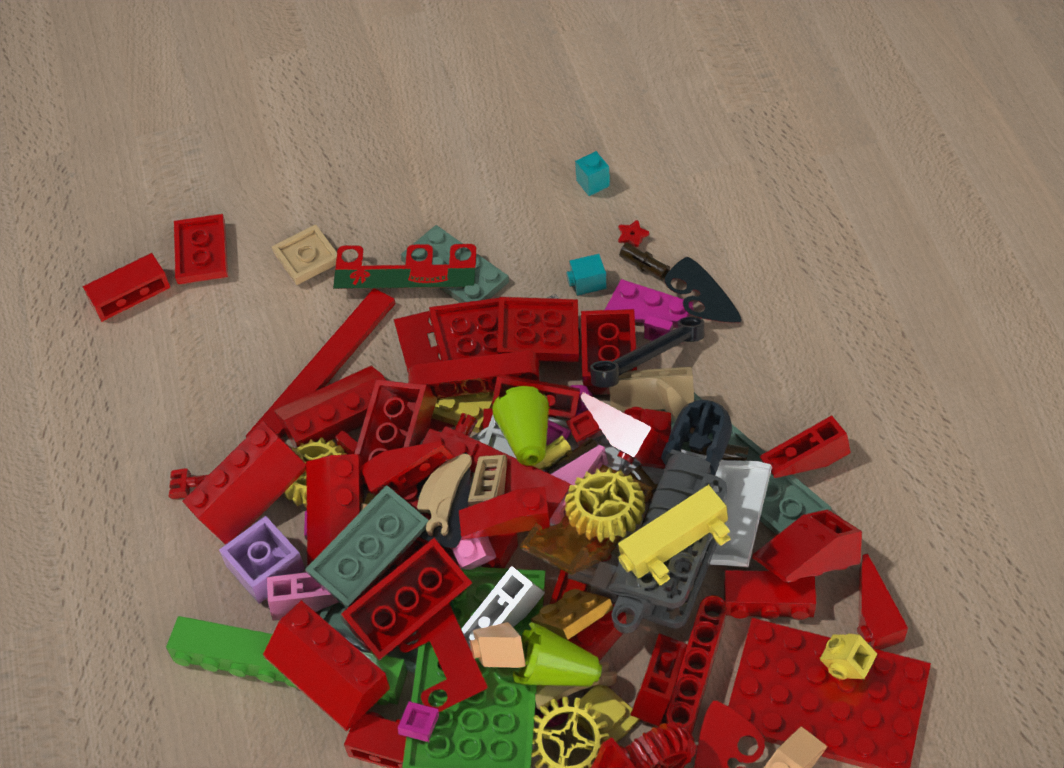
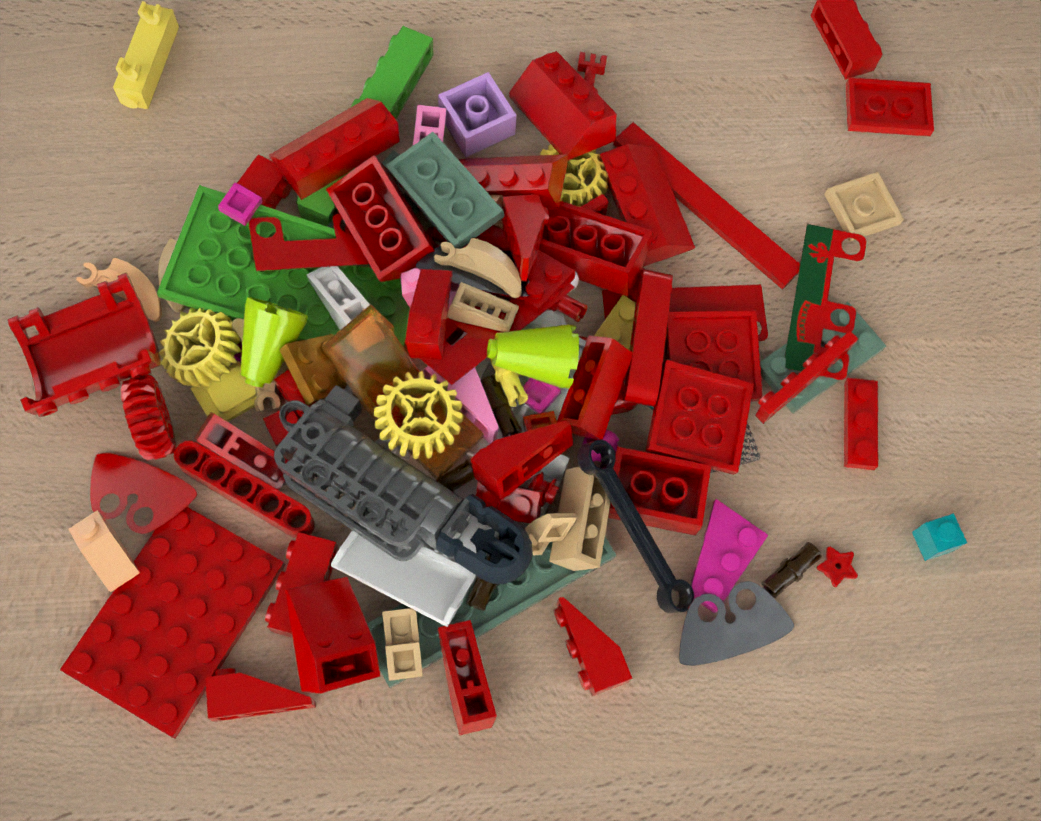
camera: 90 degrees right, 15 degrees up
(484, 264) = (814, 367): none -> red plate
(498, 646) = (295, 288): light nougat slope -> none
(508, 234) = (861, 423): none -> red plate
(587, 274) = (780, 496): teal brick -> none
(624, 655) = (276, 427): none -> red tile
(656, 327) = (684, 558): dark pink plate -> none
(672, 533) = (345, 459): light yellow brick -> none
(755, 372) = (598, 655): none -> red slope
(798, 500) = (402, 644): none -> tan slope
(848, 656) = (188, 630): light yellow brick -> none

